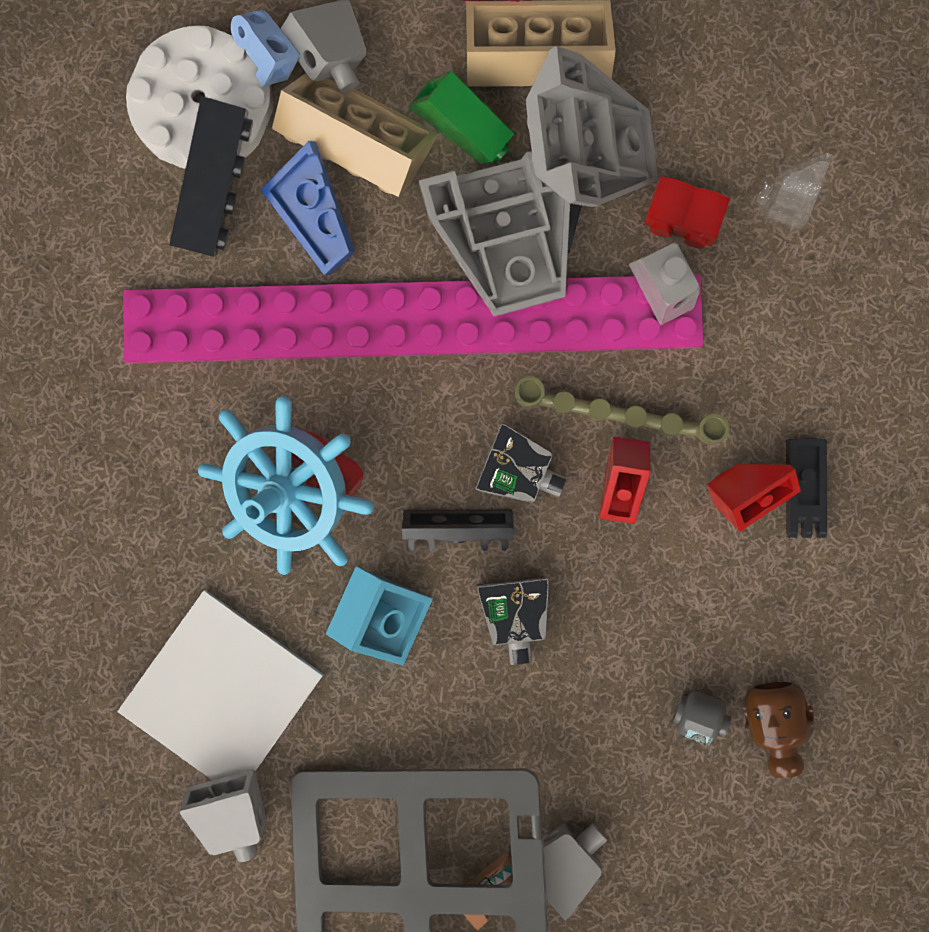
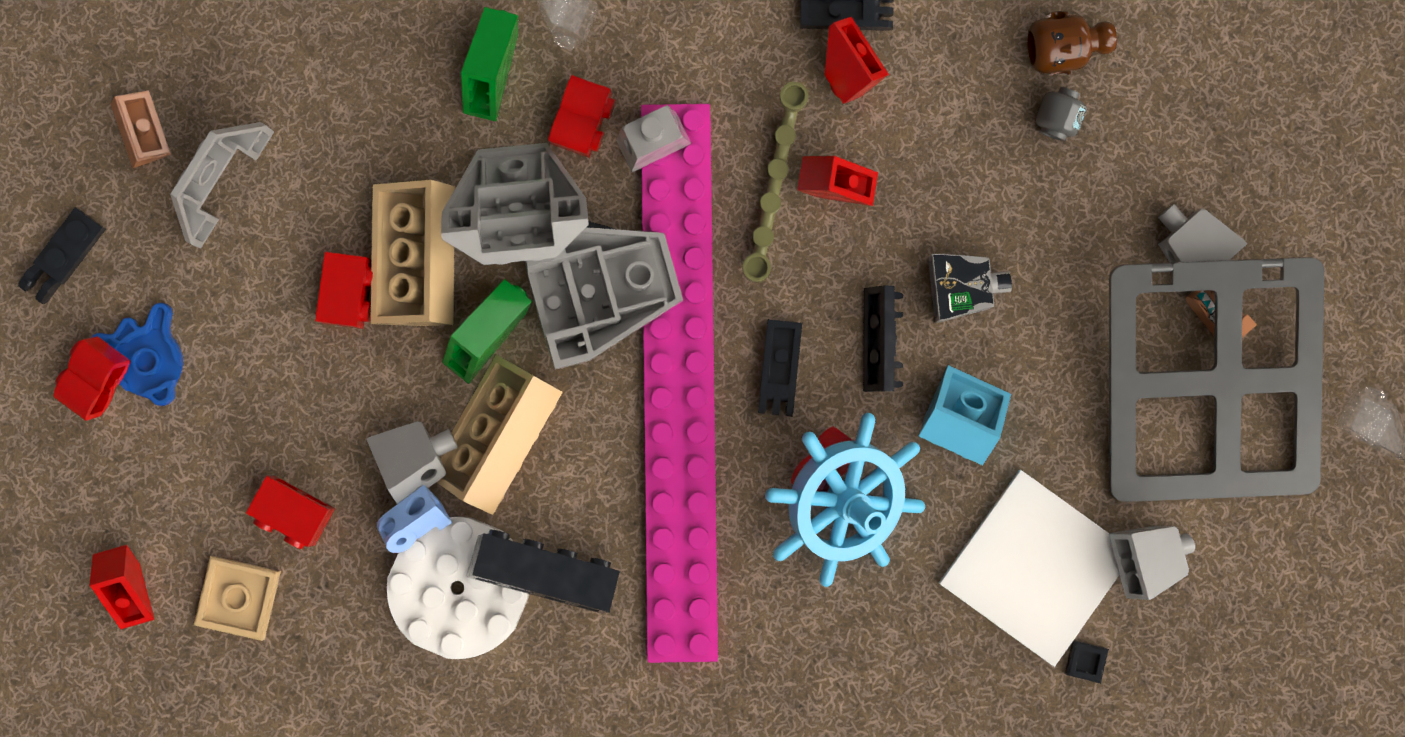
camera: 95 degrees left, 0 degrees up
(123, 745) = (1086, 661): none -> black tile
(310, 208) = (572, 477): wing -> none
(428, 422) = (780, 366): none -> black hinge
(518, 468) = (827, 281): black torso -> none
(740, 114) = (488, 63): none -> green slope

